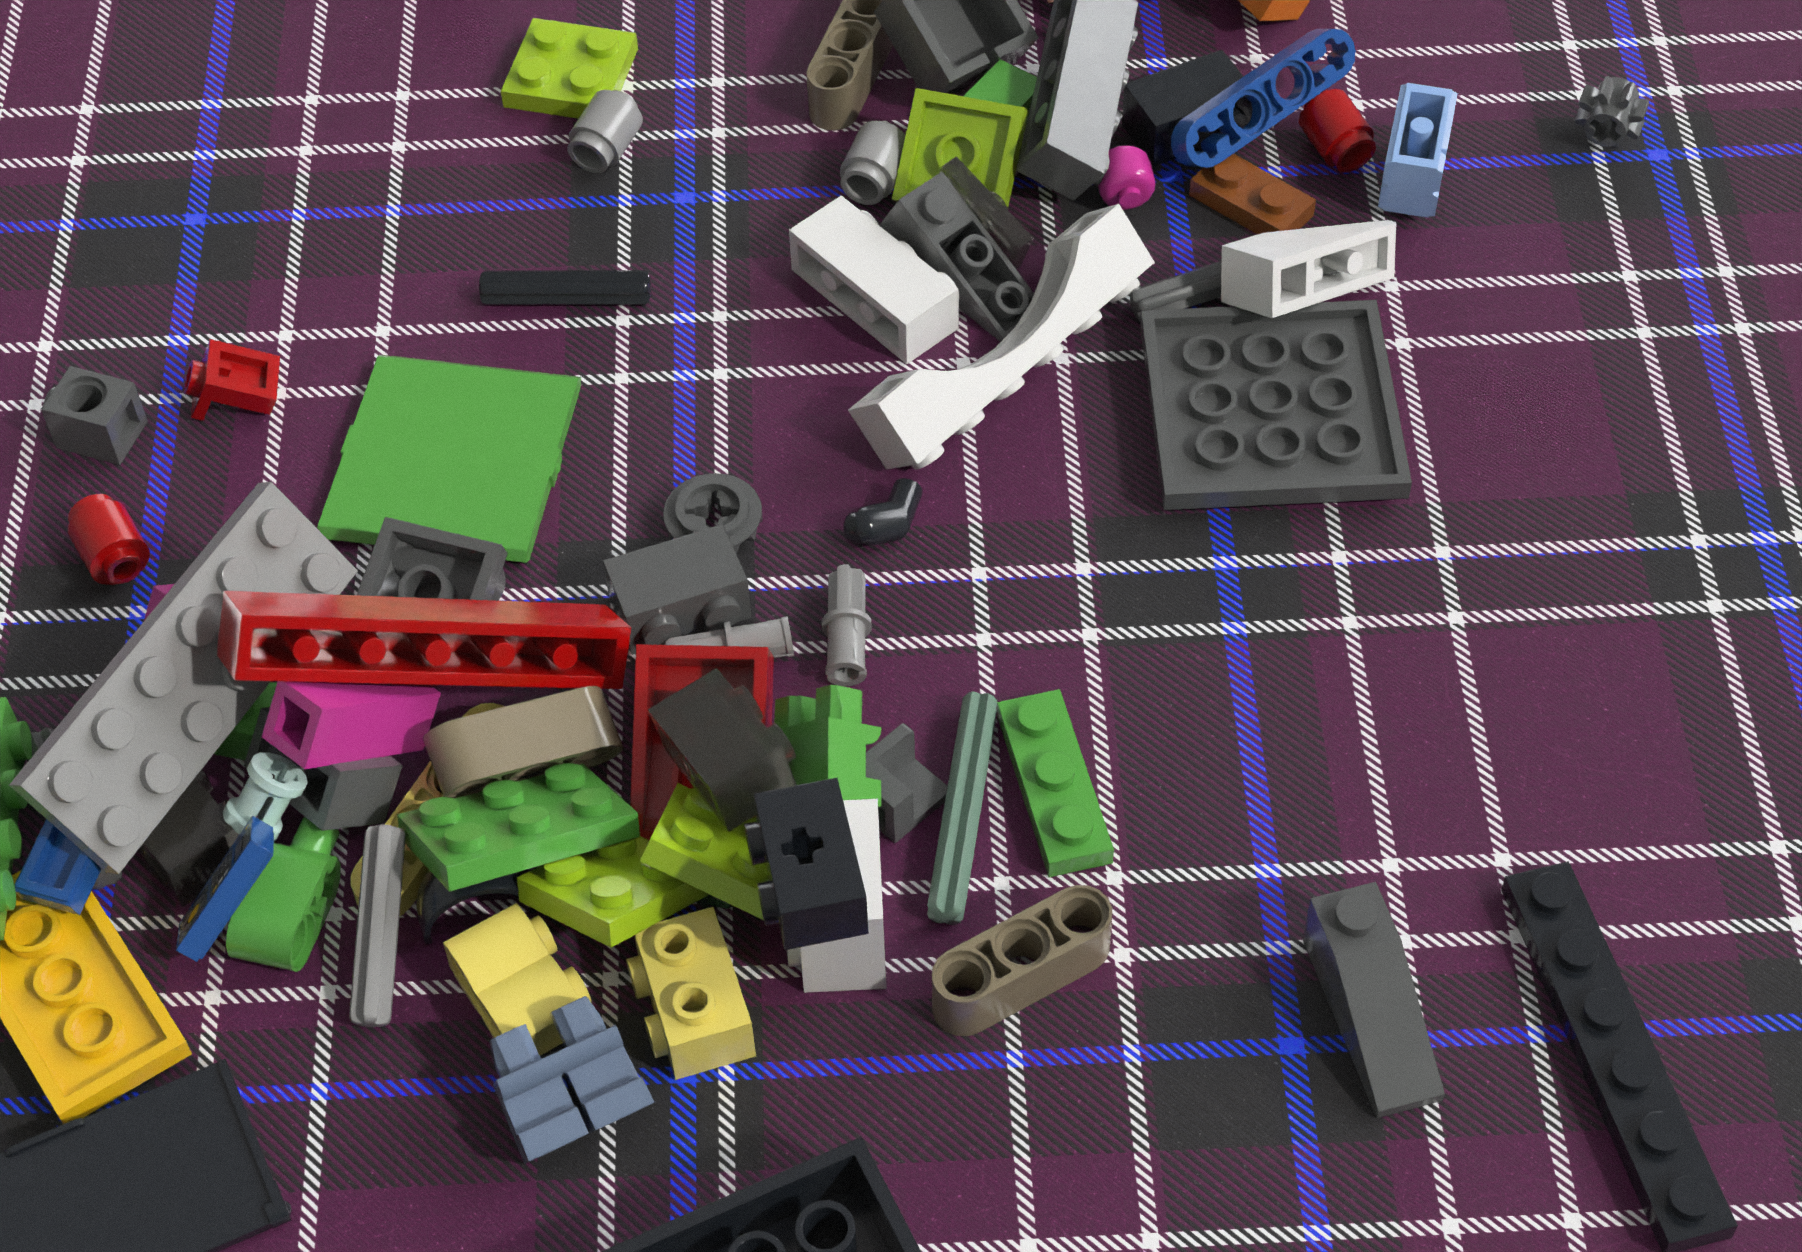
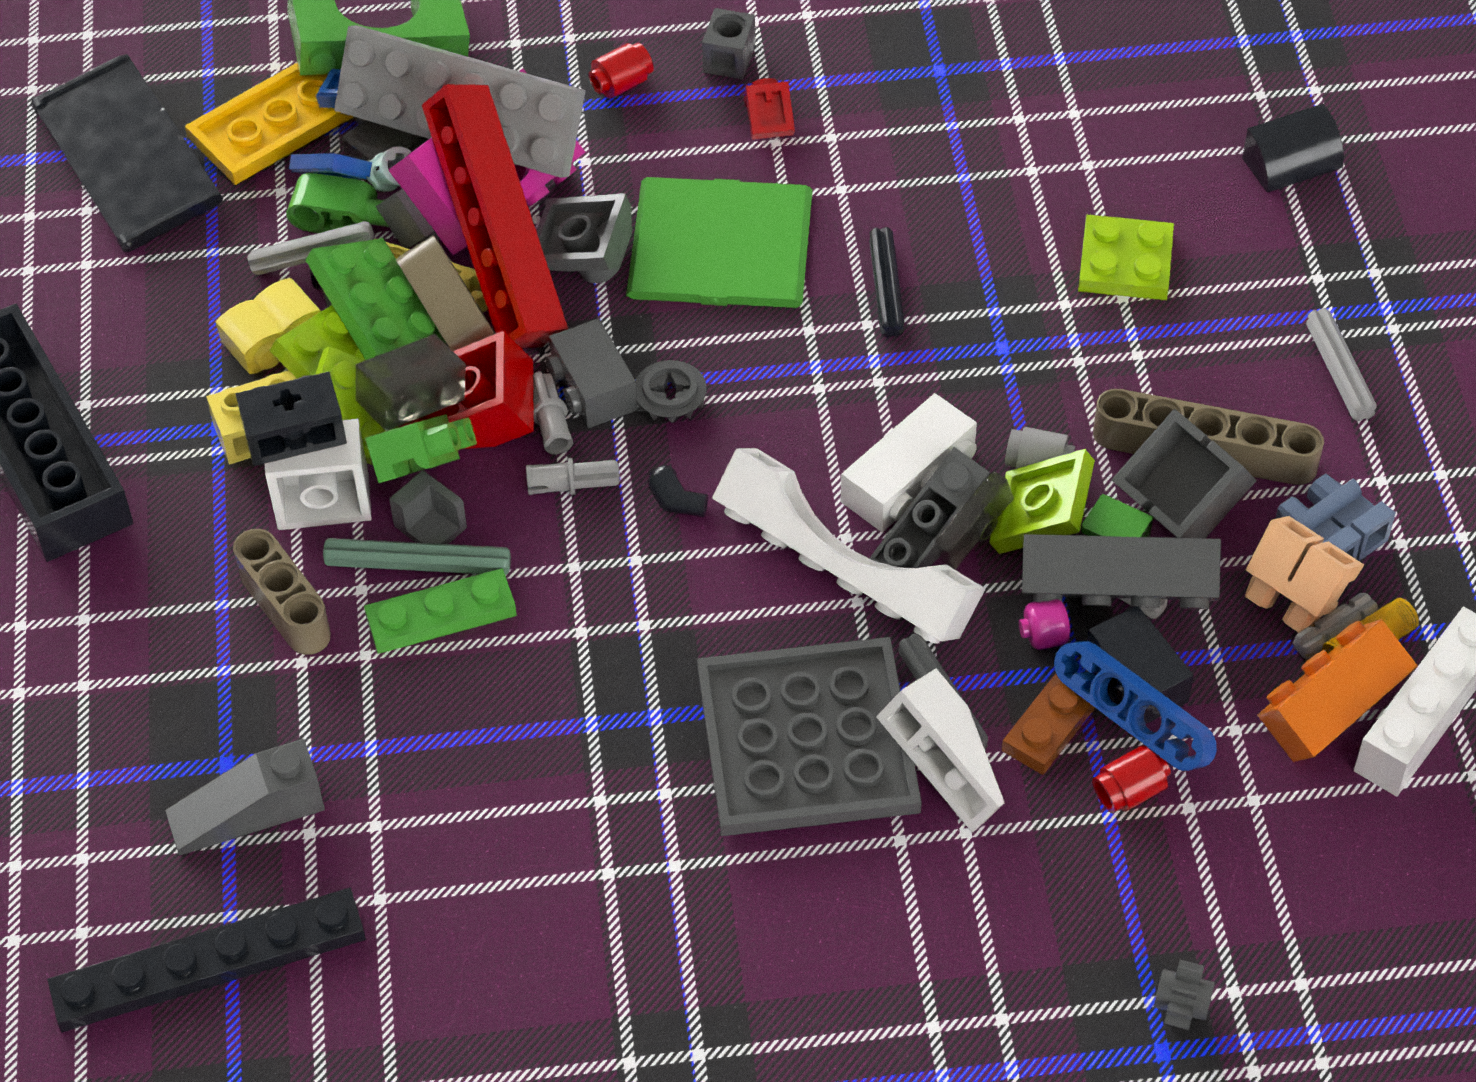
camera: 85 degrees right, 0 degrees up
(593, 1068) = (186, 358): sand blue hips -> none
(604, 130) = (1051, 281): light grey brick -> none
(1417, 150) = (1099, 829): light blue brick -> none

